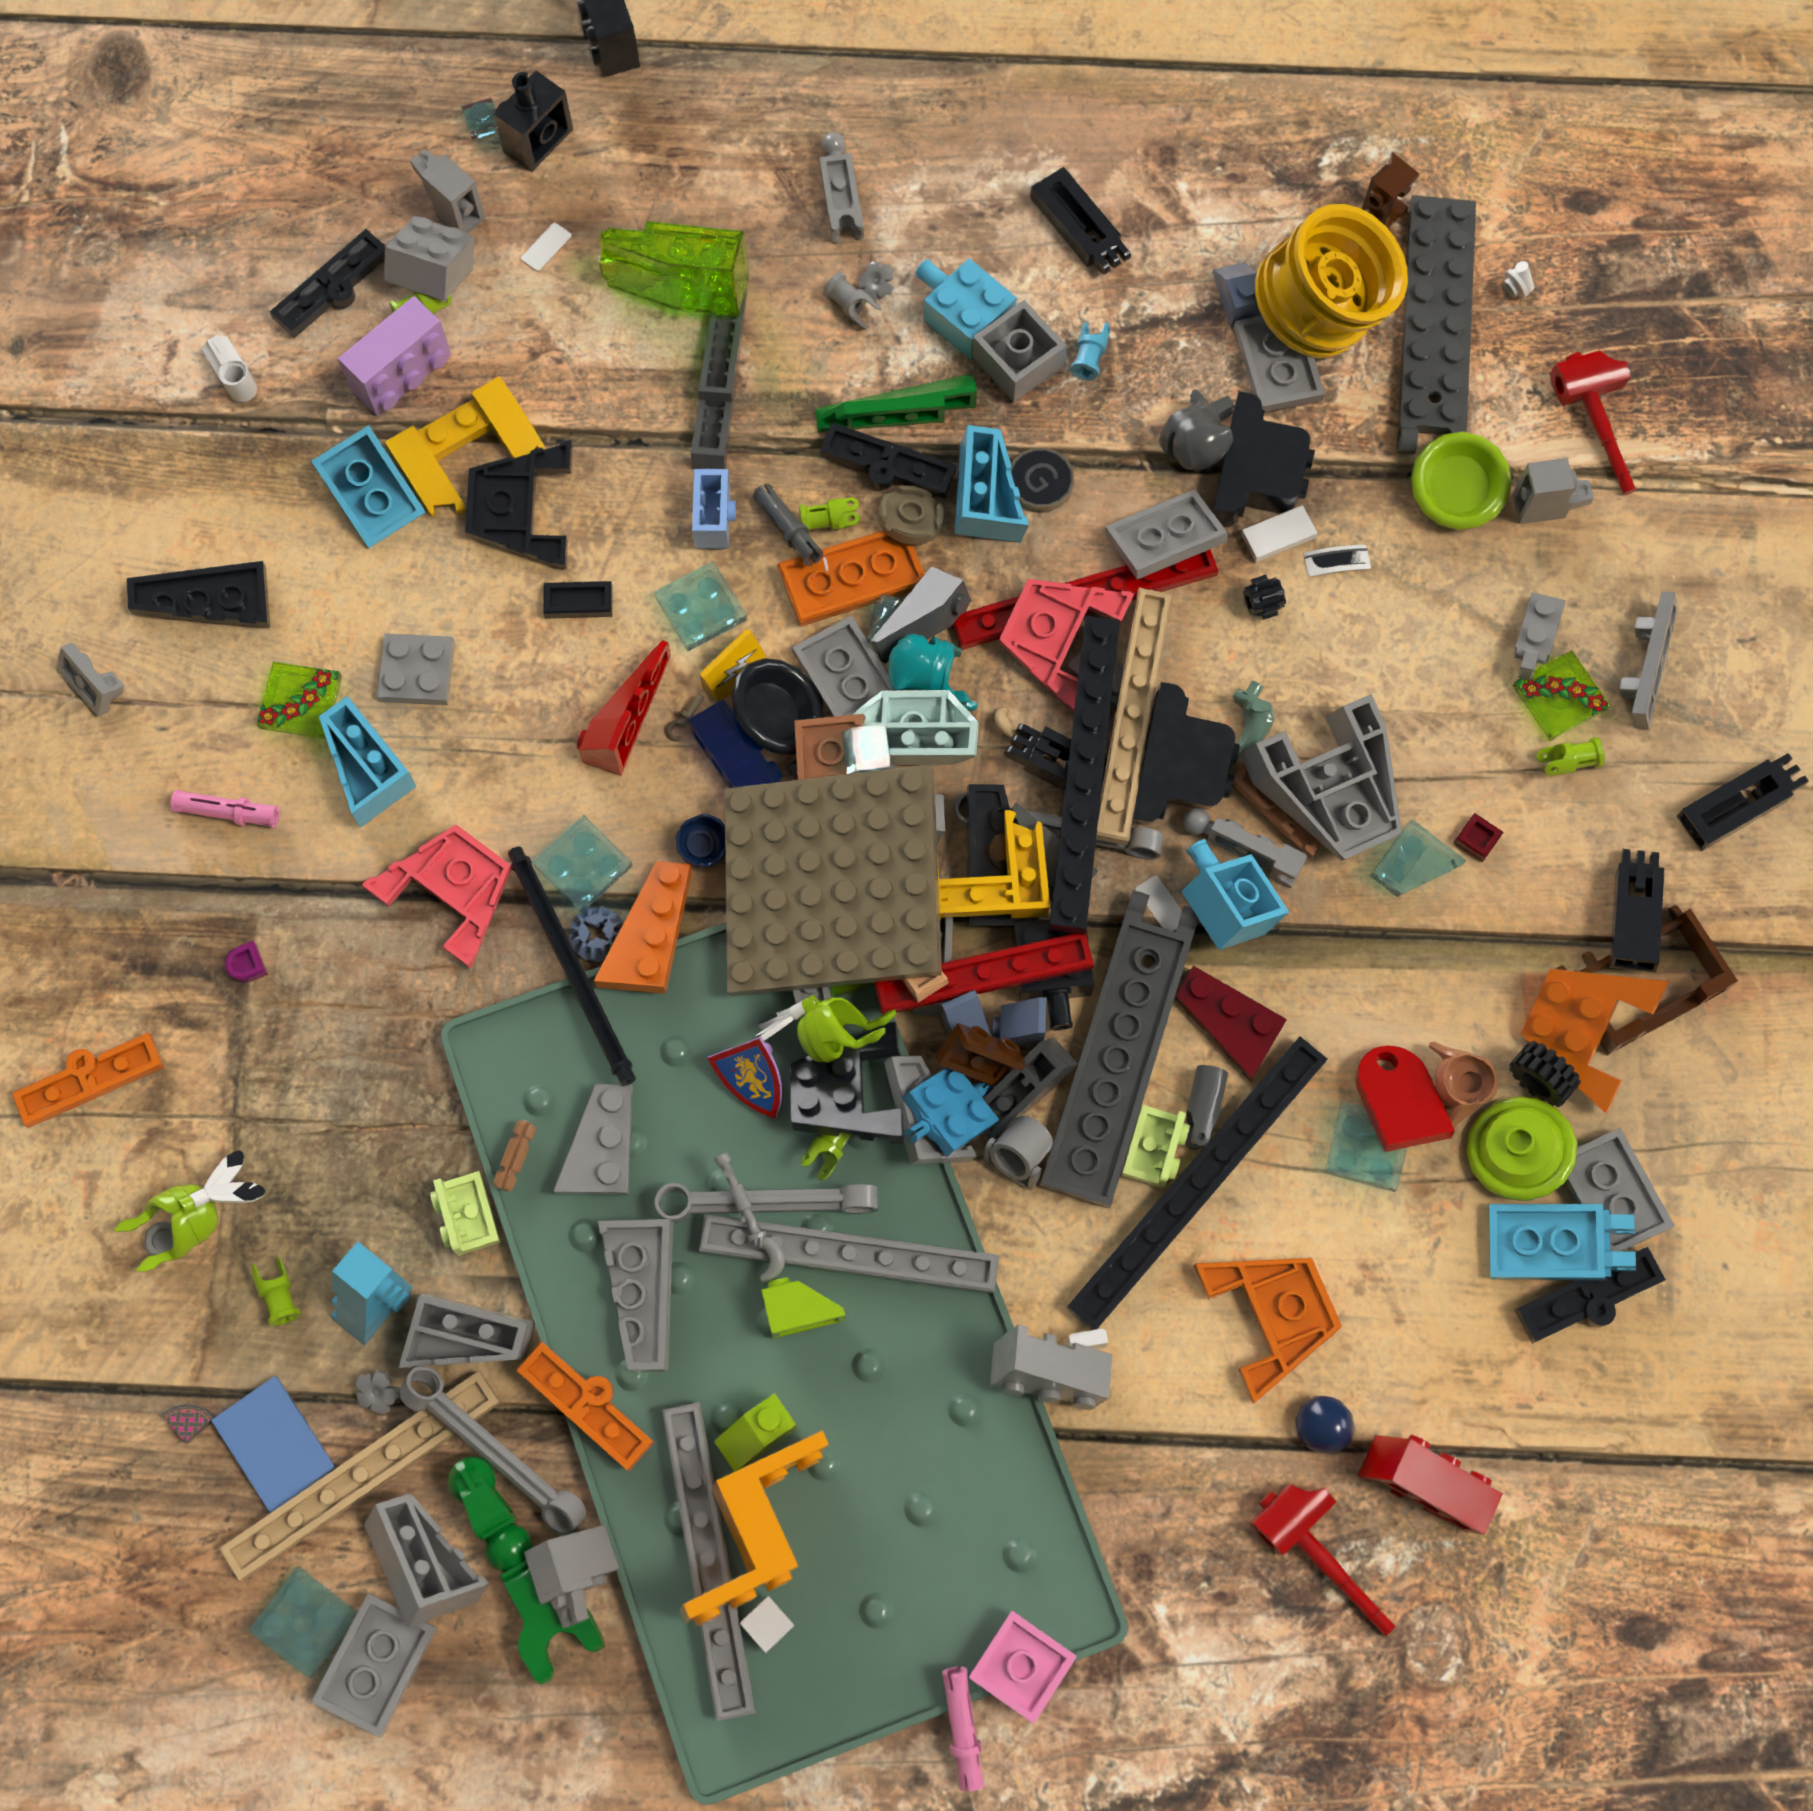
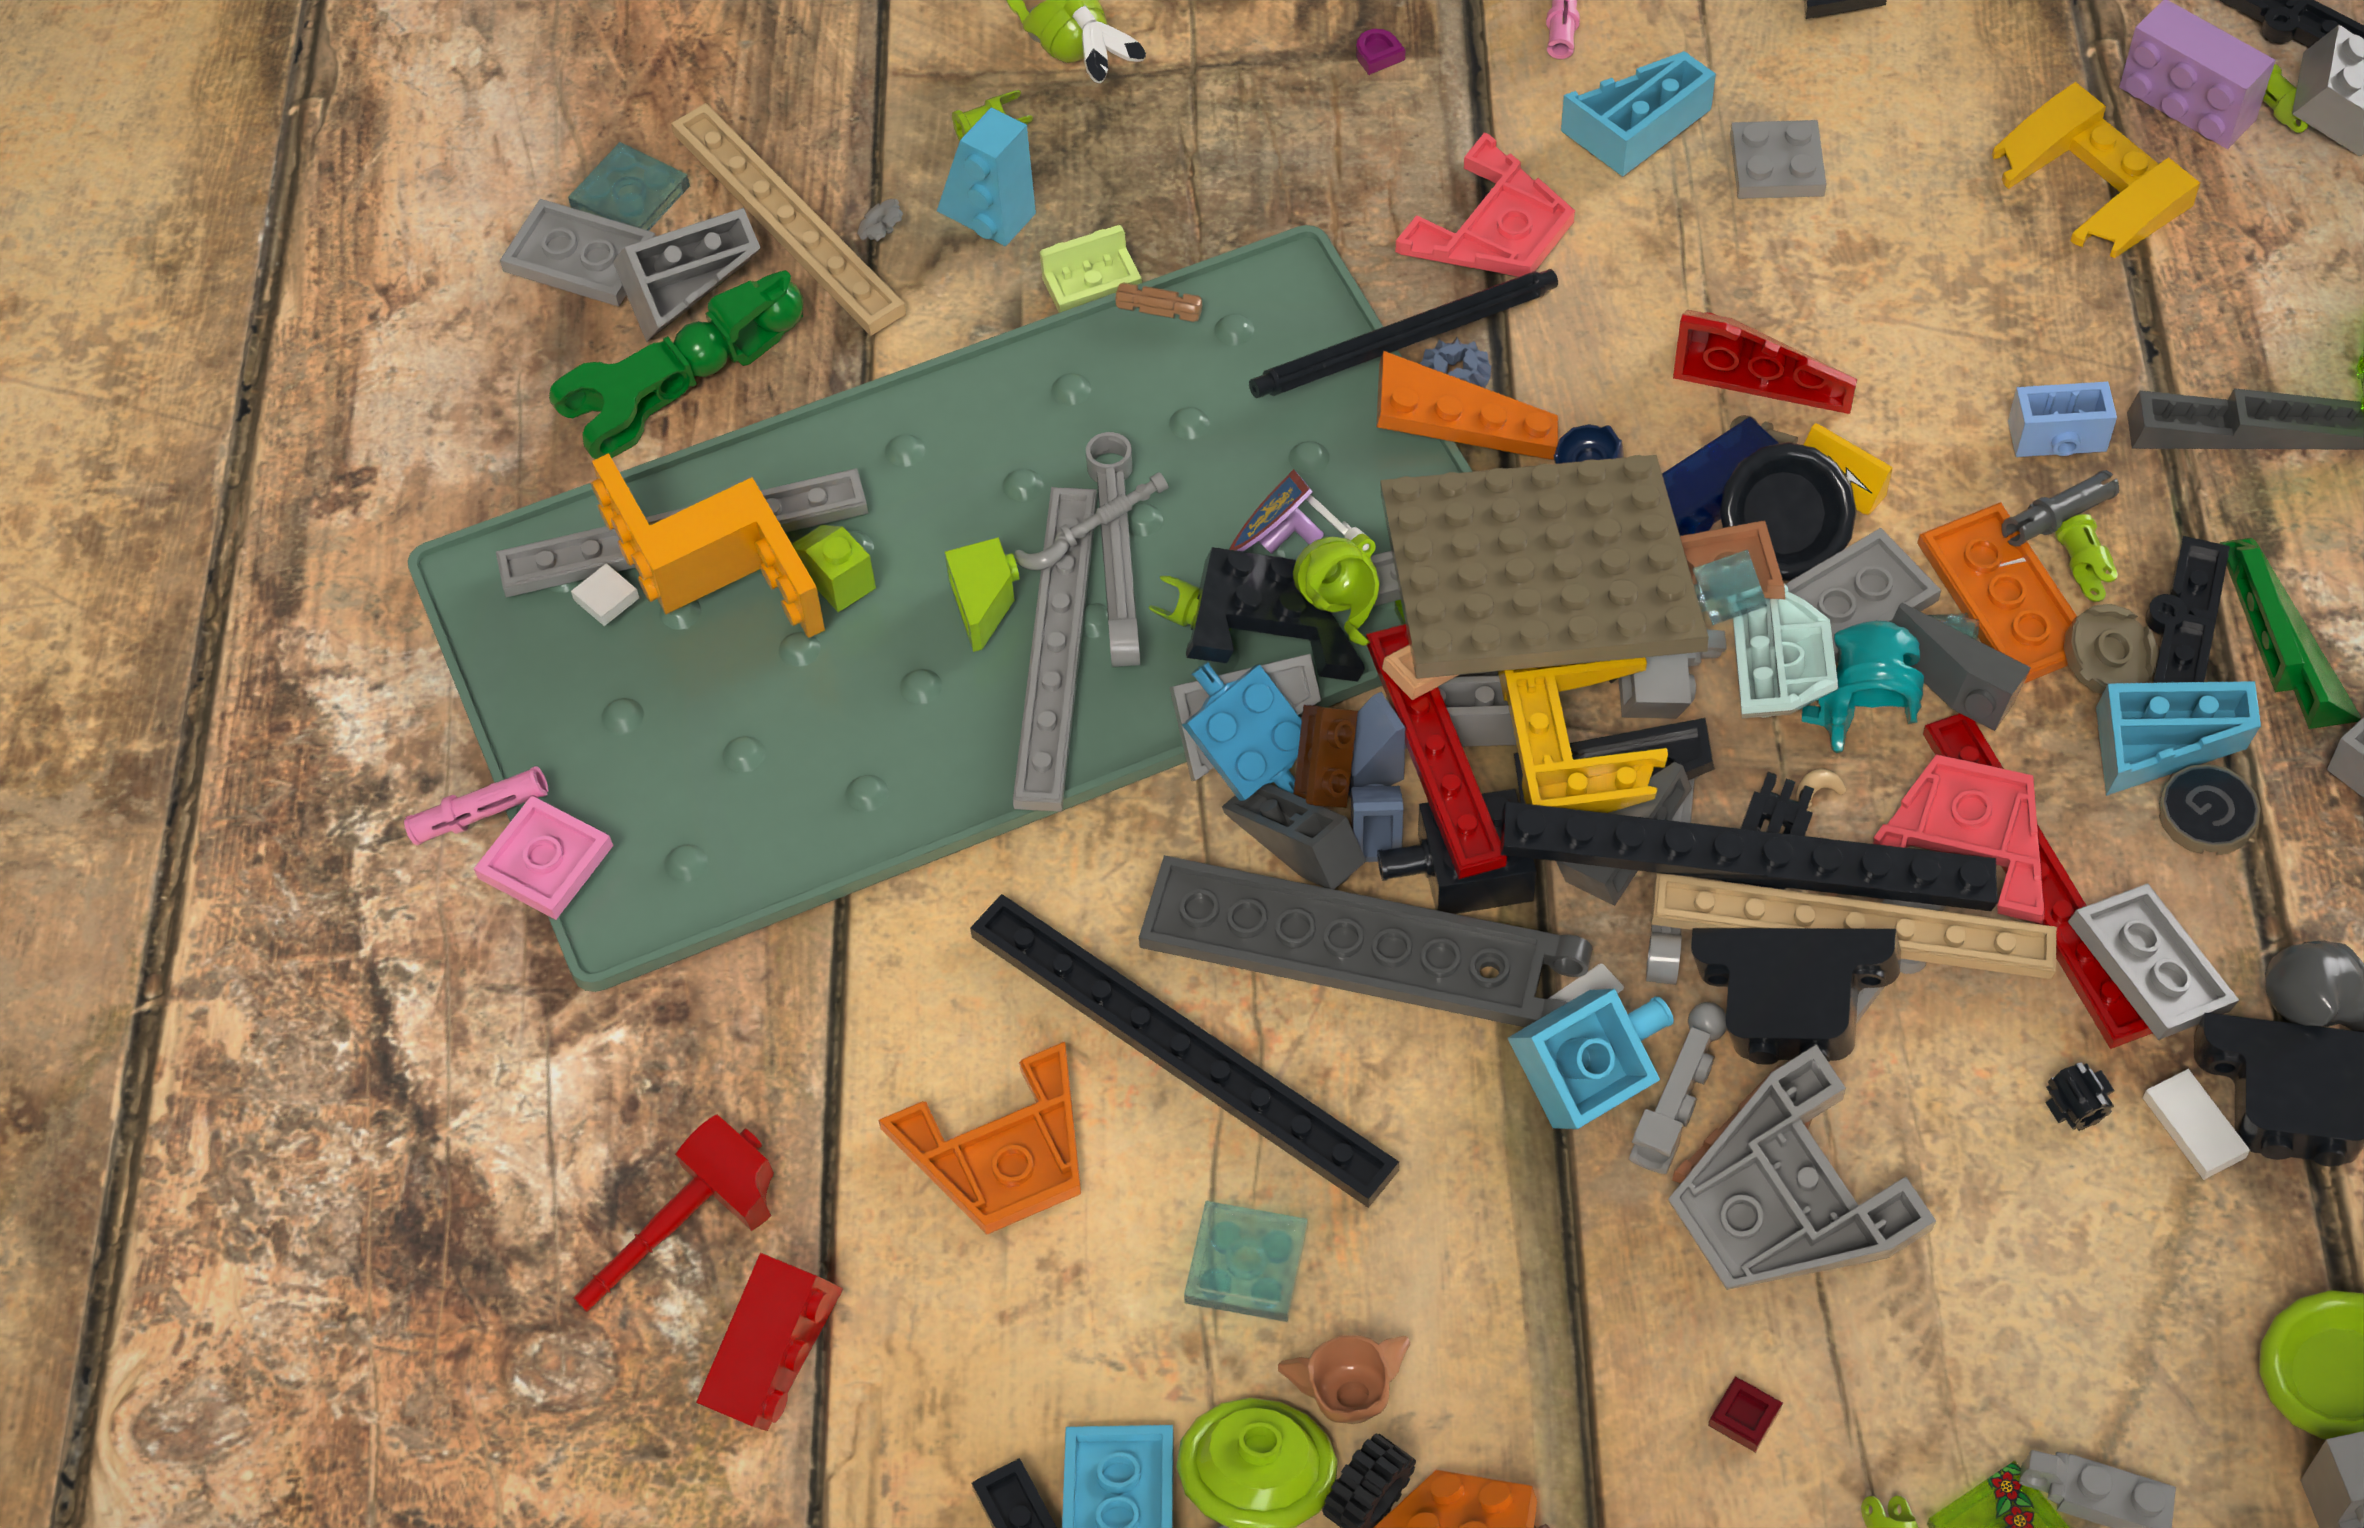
camera: 90 degrees right, 15 degrees down
(188, 1420) = (846, 68): dark grey tile -> none
(273, 1444) = (824, 140): medium blue tile -> none
(297, 698) = (1725, 49): clear neon green tile -> none
(368, 486) = (2013, 74): medium azure slope -> none
(459, 1332) = (946, 279): light grey wedge -> none
(504, 503) = (2026, 213): black wing -> none
(560, 1510) = (753, 384): light grey piece -> none
(567, 1567) = (677, 393): light grey hinge -> none
(578, 599) = (1906, 307): black tile -> none
(582, 863) = (1543, 342): clear light blue plate -> none
(586, 1405) = (860, 397): orange hinge -> none
(602, 1145) = (1178, 384): light grey wing -> none
(641, 1282) = (997, 436): light grey wing -> none
(700, 606) = (1922, 429): clear light blue plate -> none
(1020, 1151) = (1204, 825): light grey piece -> none
(1050, 1369) = (911, 863): light grey wedge -> none
(1095, 1339) = (957, 921): white tile -> none
(1154, 1146) = (1225, 990): yellowish green bracket -> none
(1205, 1104) = (1290, 1049): dark grey piece -> none
(1231, 1018) = (1418, 1085): dark red wing -> none
(1258, 717) = (1888, 1099): sand green animal -> none
(1325, 1425) = (853, 1218): dark blue hair -> none
(1337, 559) = (2173, 1212): sticker -> none
(1402, 1100) = (1313, 1293): red tile -> none
(1414, 860) = (1690, 1317): clear light blue wing -> none

